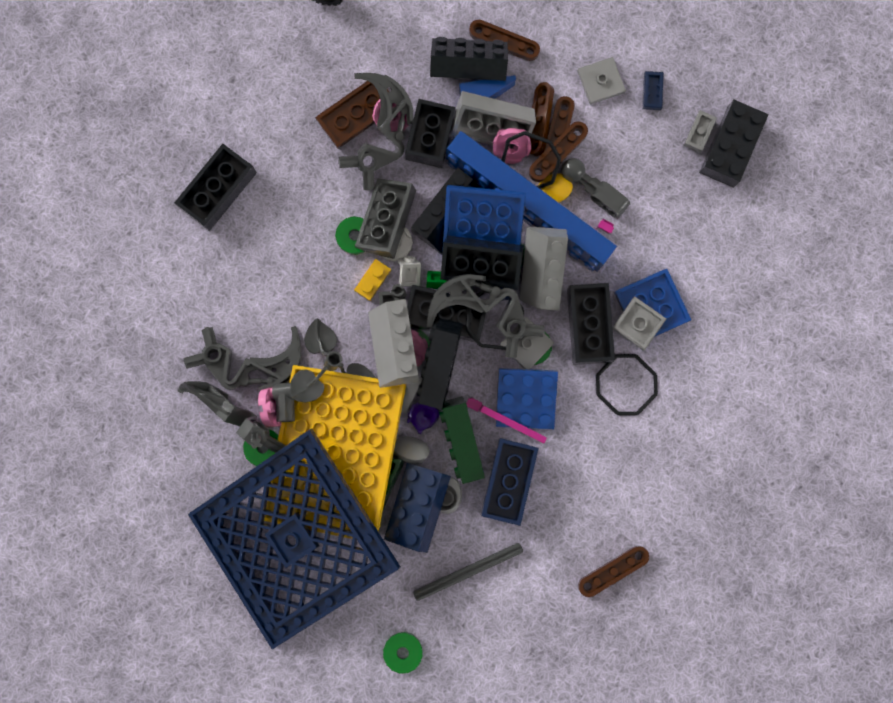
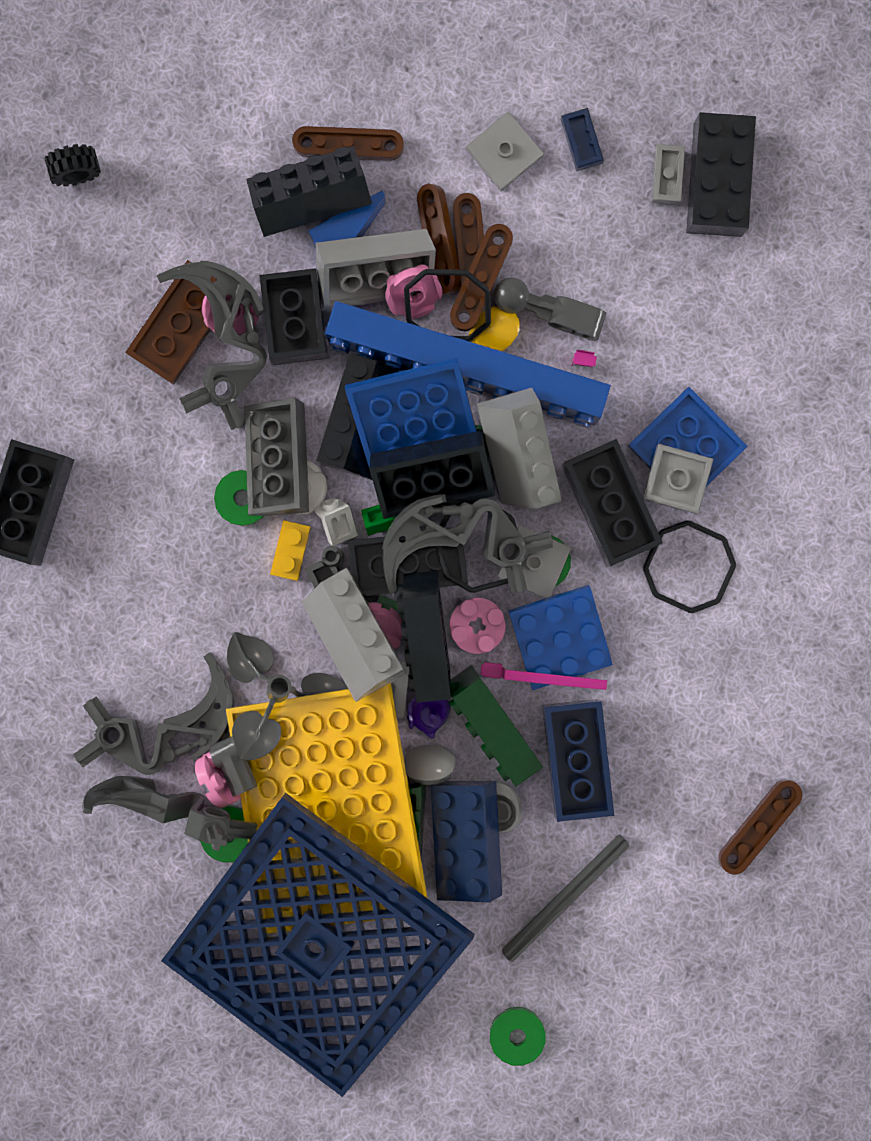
camera: 10 degrees left, 5 degrees up
(464, 373) = (463, 633): none -> bright pink plate

